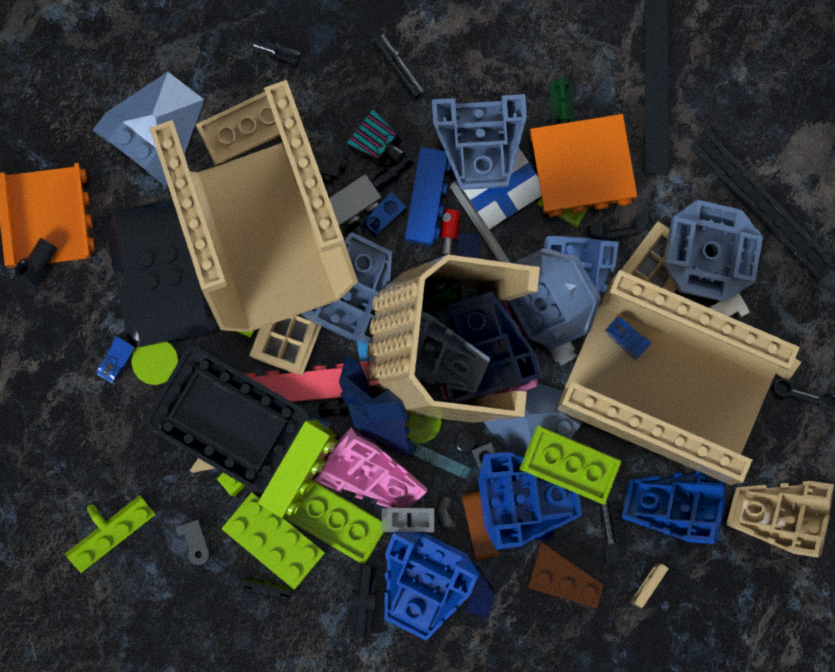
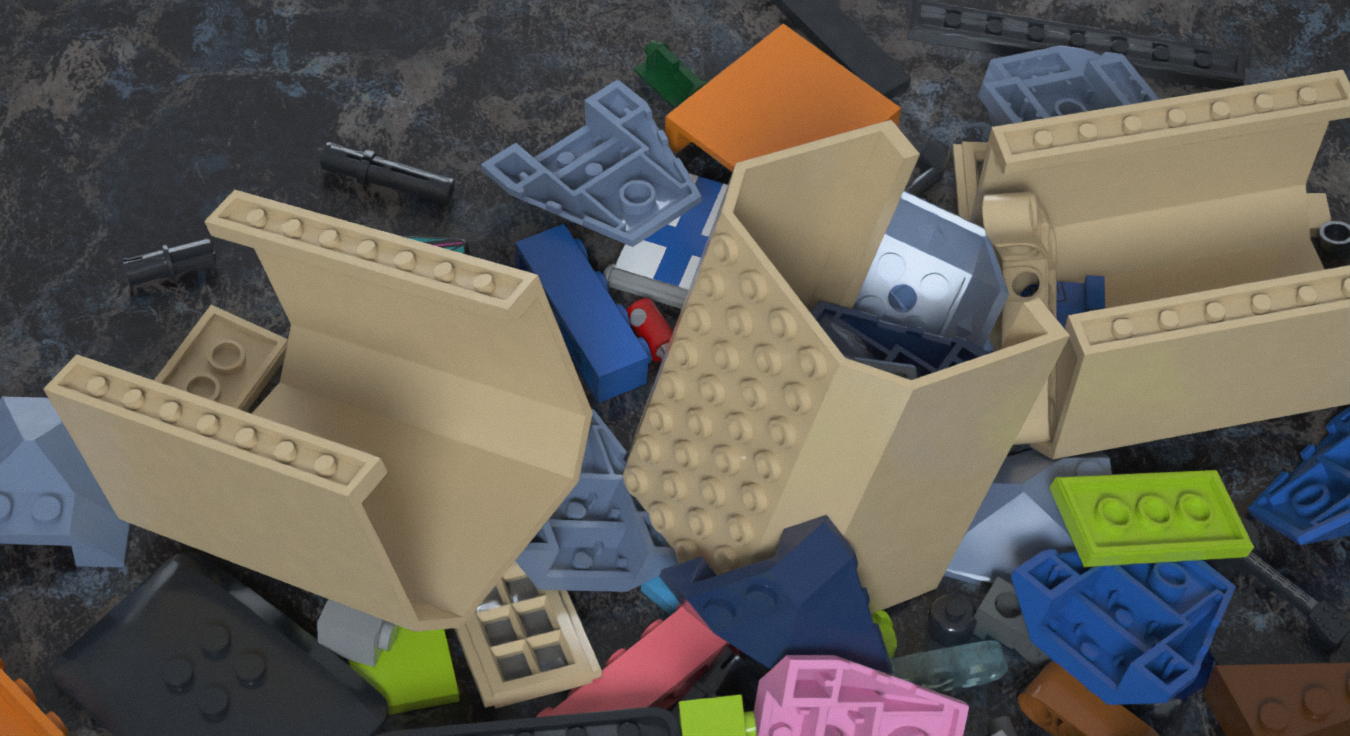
camera: 40 degrees left, 30 degrees down
(596, 343) = (1029, 256): none -> tan beam

